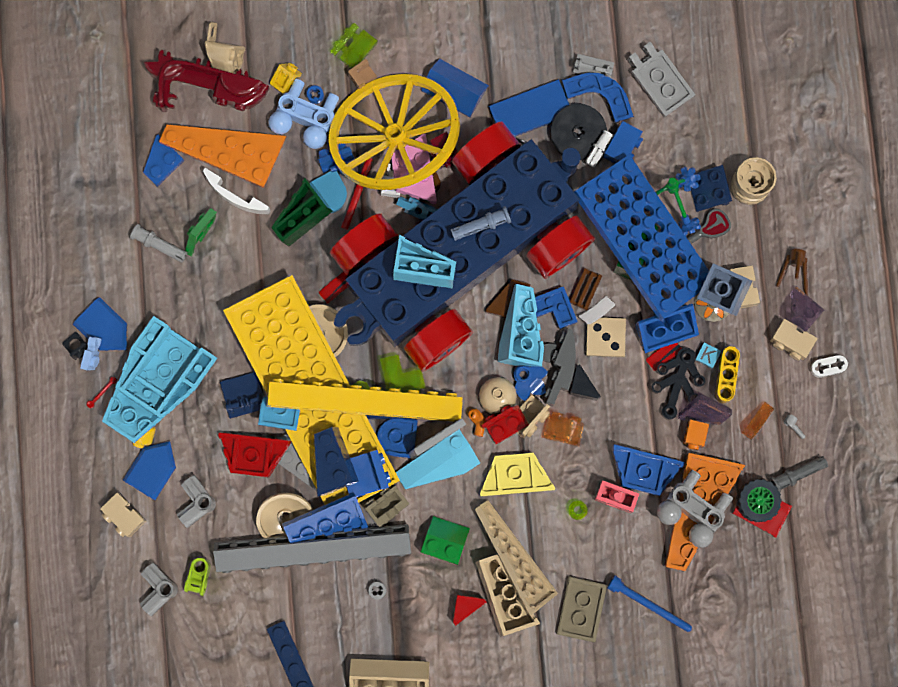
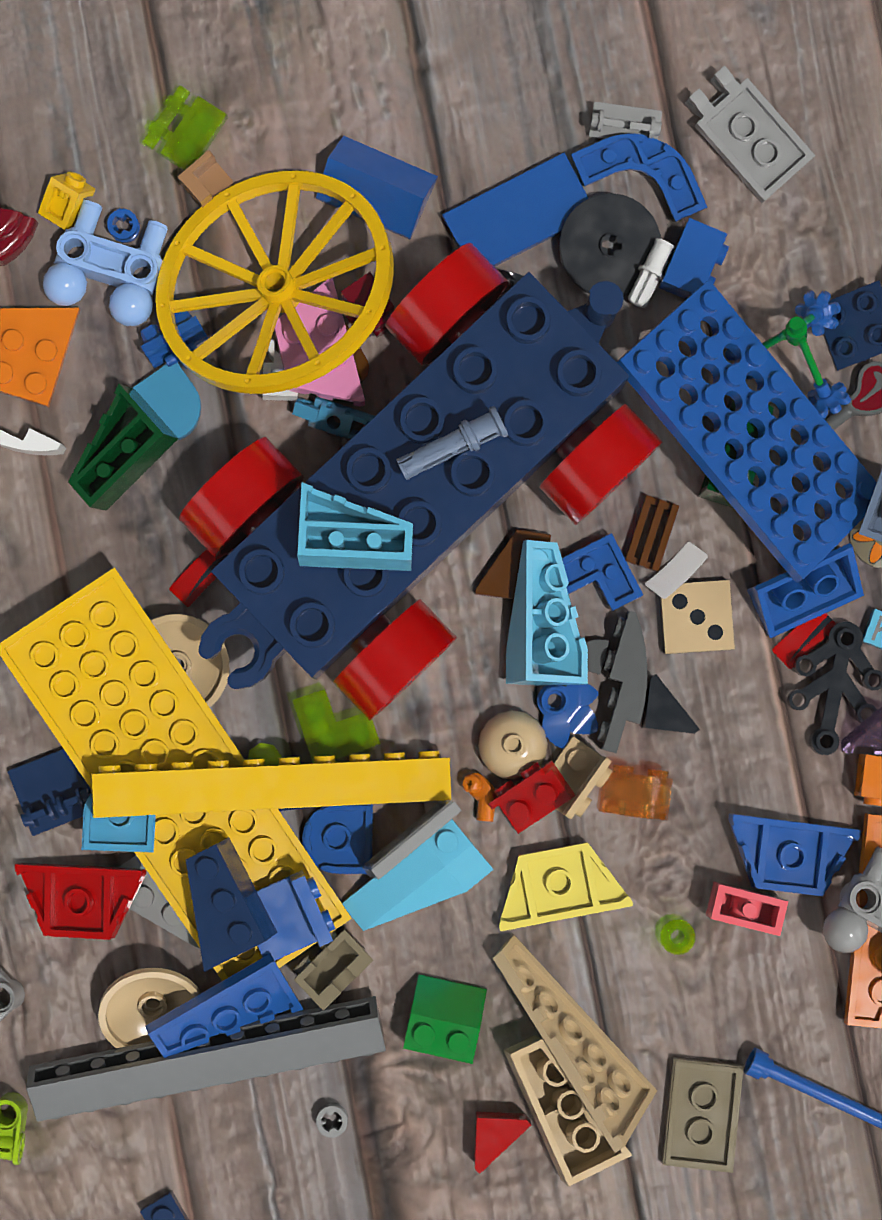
camera: 10 degrees left, 5 degrees up
(356, 195) = (218, 405): red bar -> none

